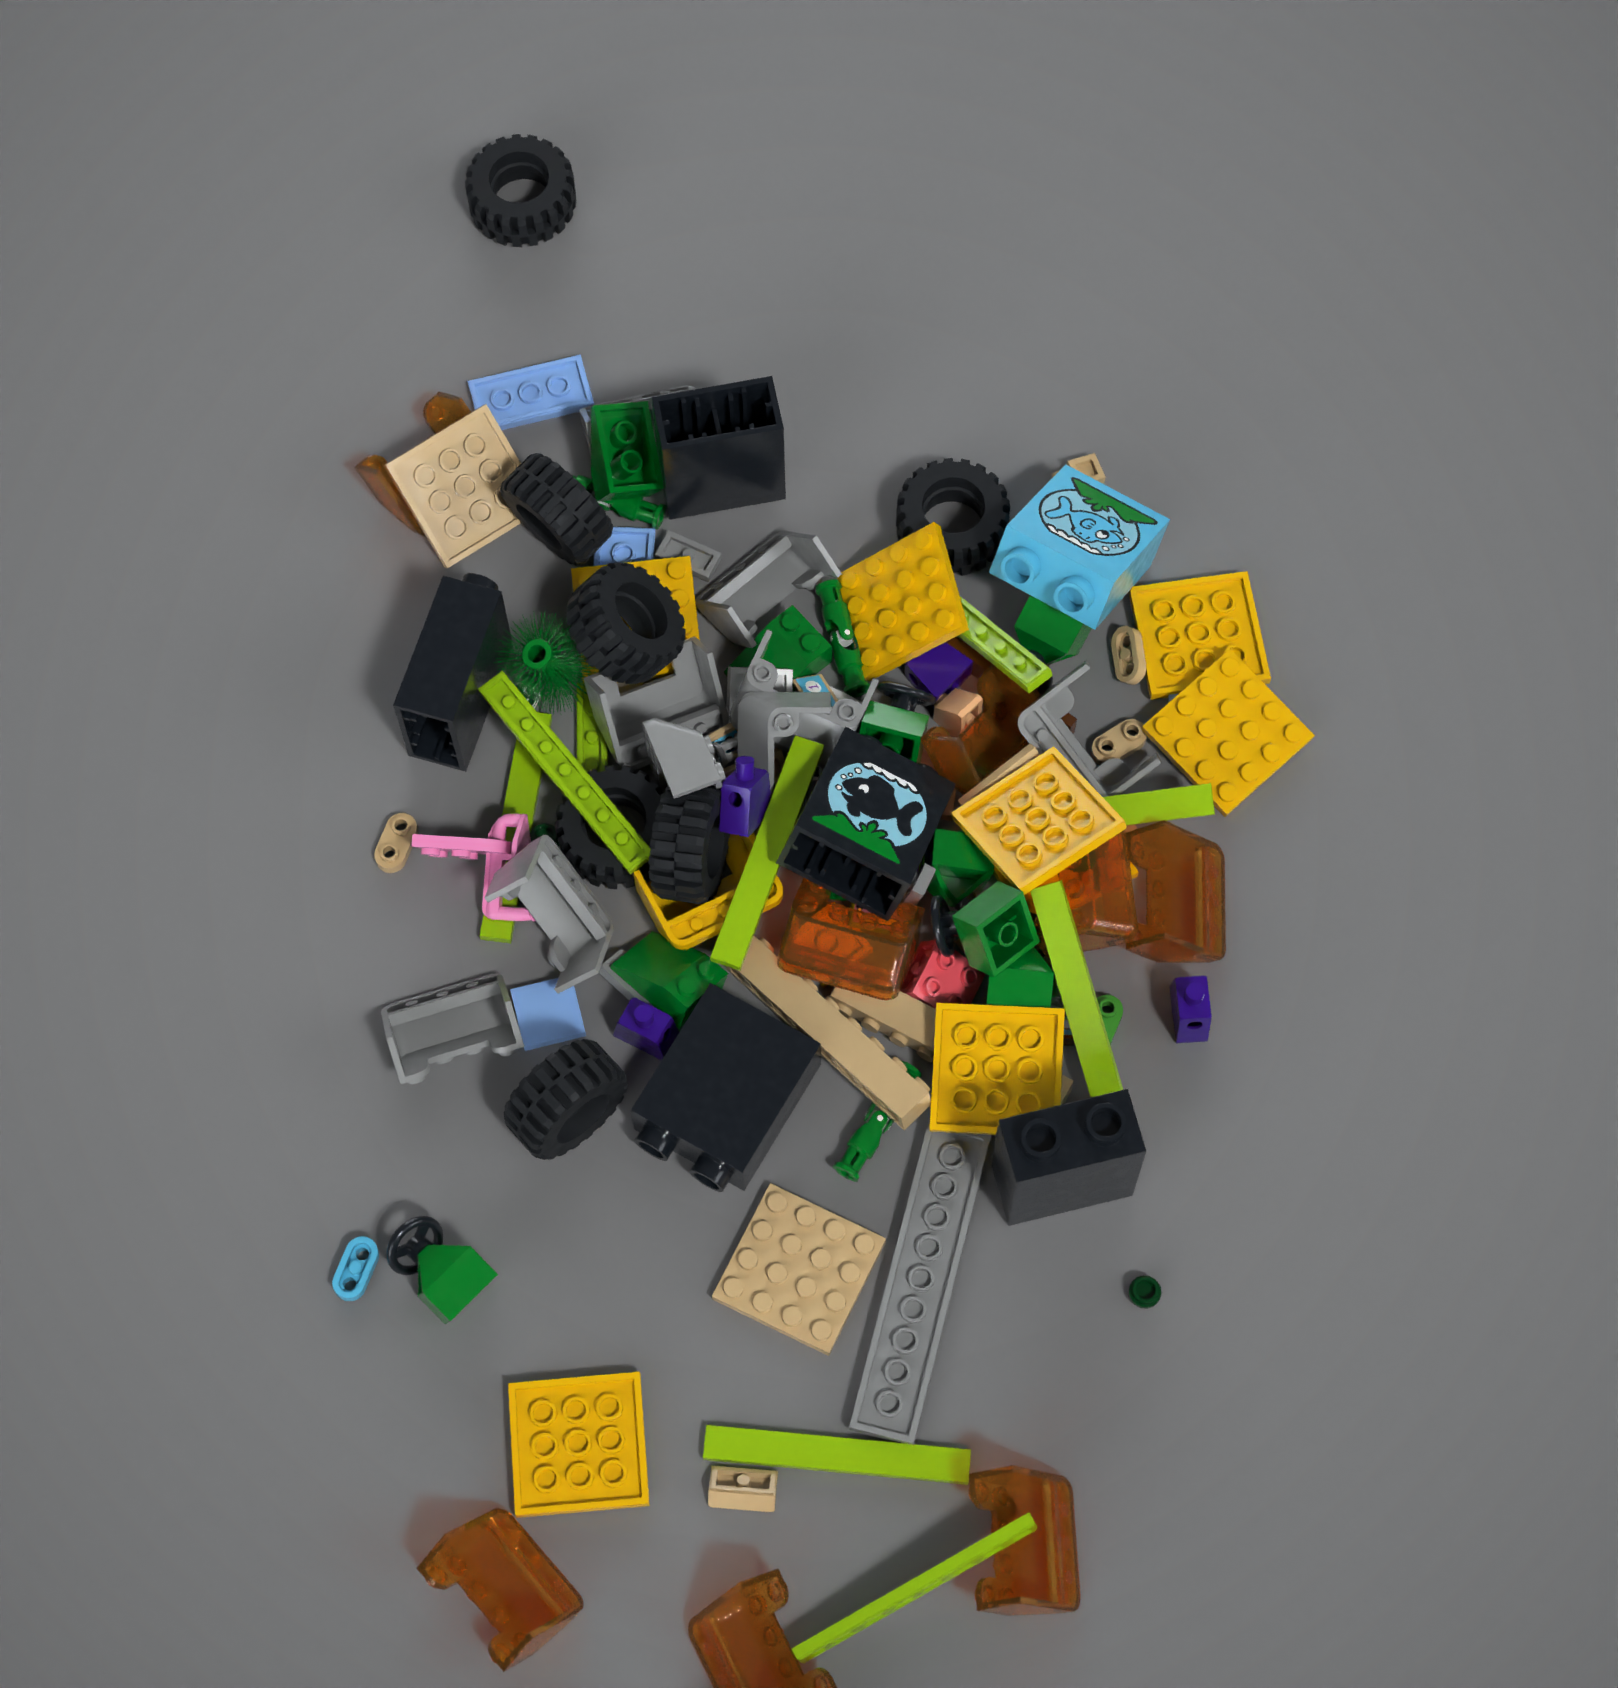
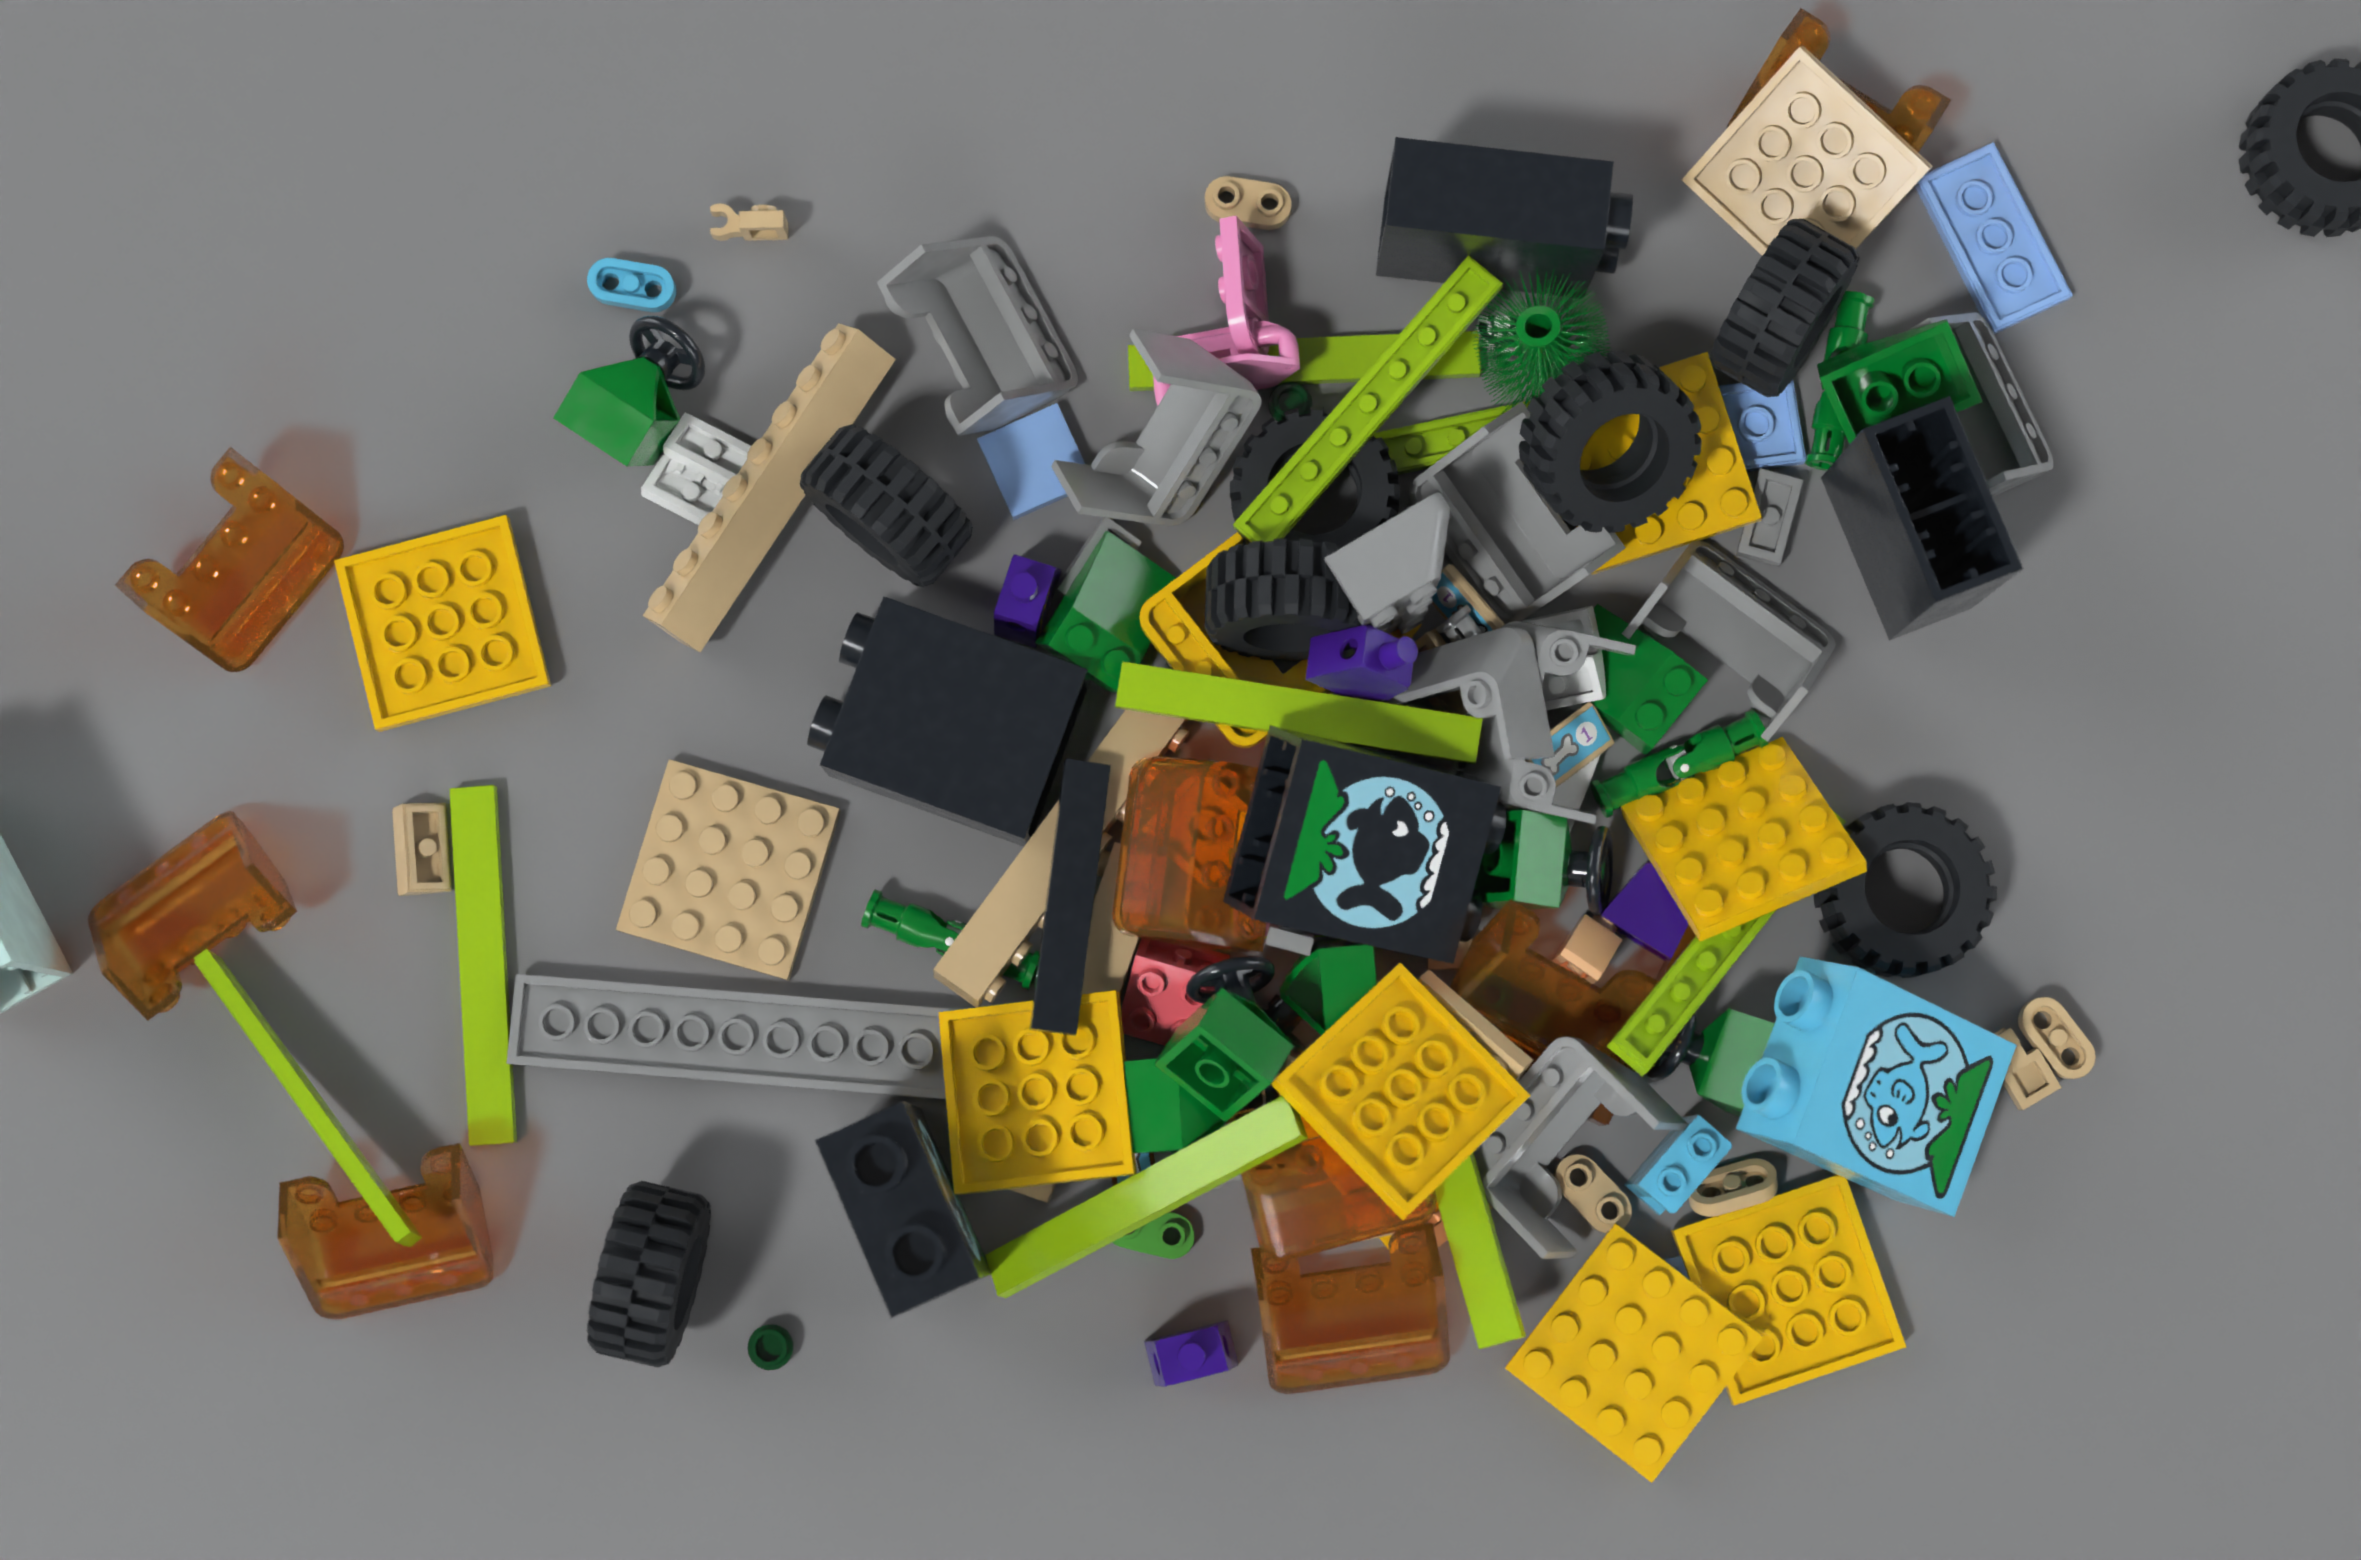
camera: 80 degrees right, 15 degrees up
(332, 1171) = (760, 223): none -> tan plate
(508, 1241) = (694, 468): none -> white slope
(530, 1191) = (766, 488): none -> tan brick
(866, 1021) = (1070, 897): none -> black tile
(1059, 450) = (2058, 1035): none -> tan plate
(1084, 1347) = (648, 1274): none -> black tyre
(1110, 678) = (1678, 1165): none -> medium azure panel

